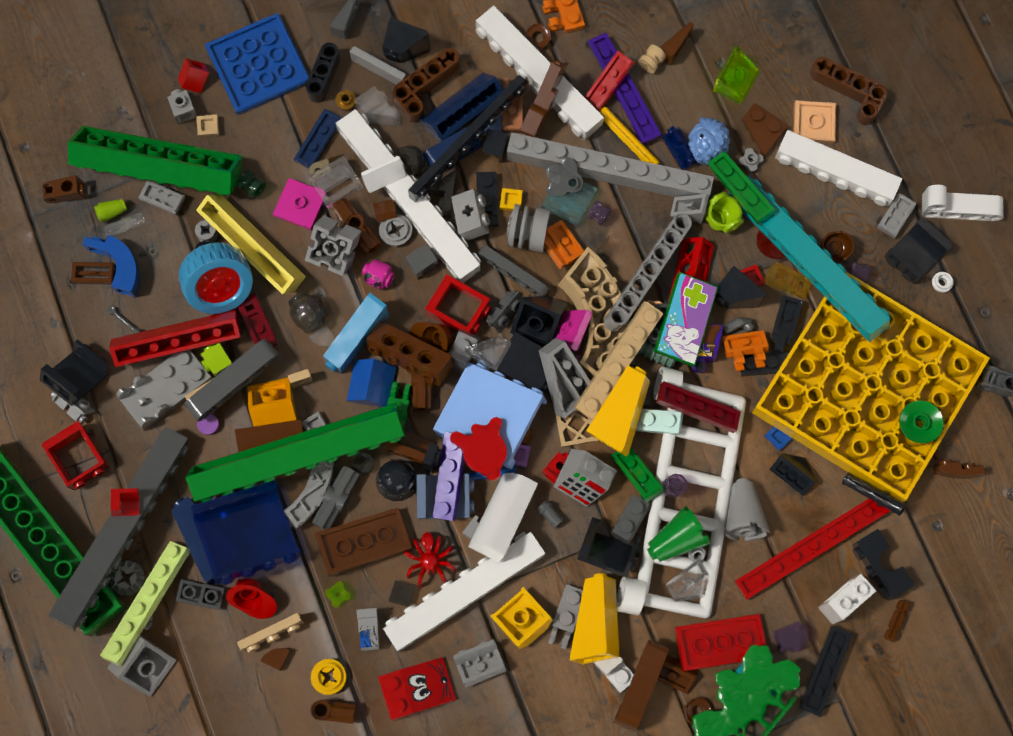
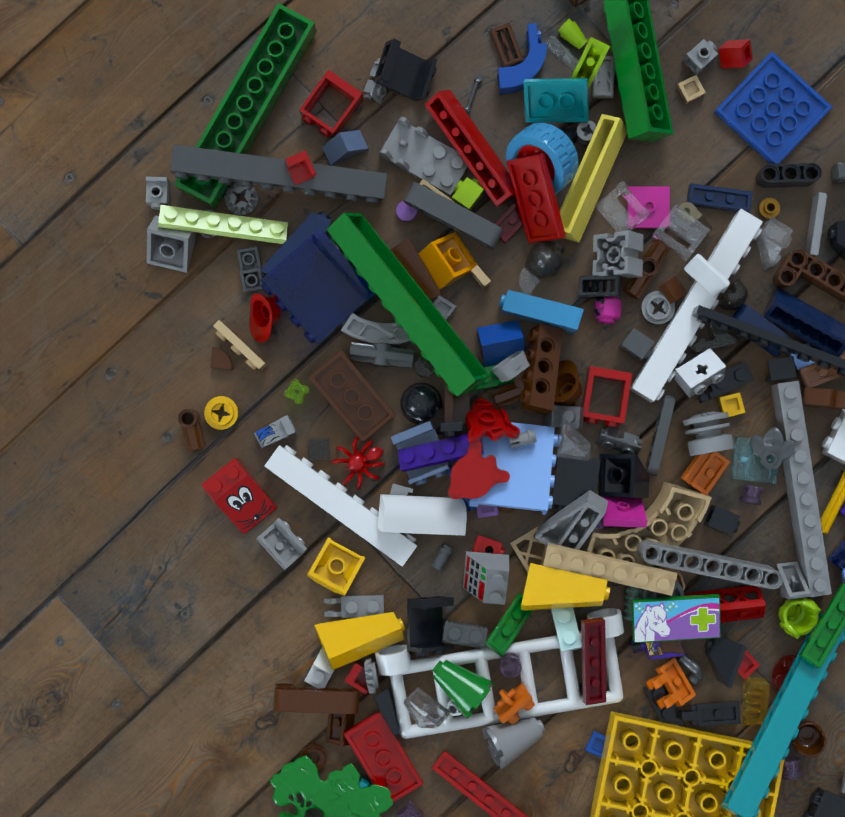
camera: 75 degrees right, 10 degrees up
(76, 654) = (163, 198): none -> light grey brick
(121, 459) = (344, 146): none -> sand blue slope
(149, 208) = (590, 60): none -> lime slope
(165, 245) = (556, 100): none -> teal plate
(248, 296) = (536, 198): none -> red tile
(251, 184) = (649, 154): clear green wheel -> none
(294, 233) = (616, 214): none -> clear plate
(347, 287) = (584, 286): none -> black slope
(396, 379) = (511, 366): none -> light grey piece
(439, 420) = (489, 422): none -> red tile
(468, 391) = (524, 439): none -> light grey pin
(613, 247) = (722, 520): none -> black brick
(636, 635) = (357, 677): none -> red panel
(638, 622) = (371, 675): none -> light grey gear
(670, 620) = (386, 705): none -> black slope
(710, 496) = (512, 702): none -> orange hips
(794, 472) = (569, 772): black slope -> none

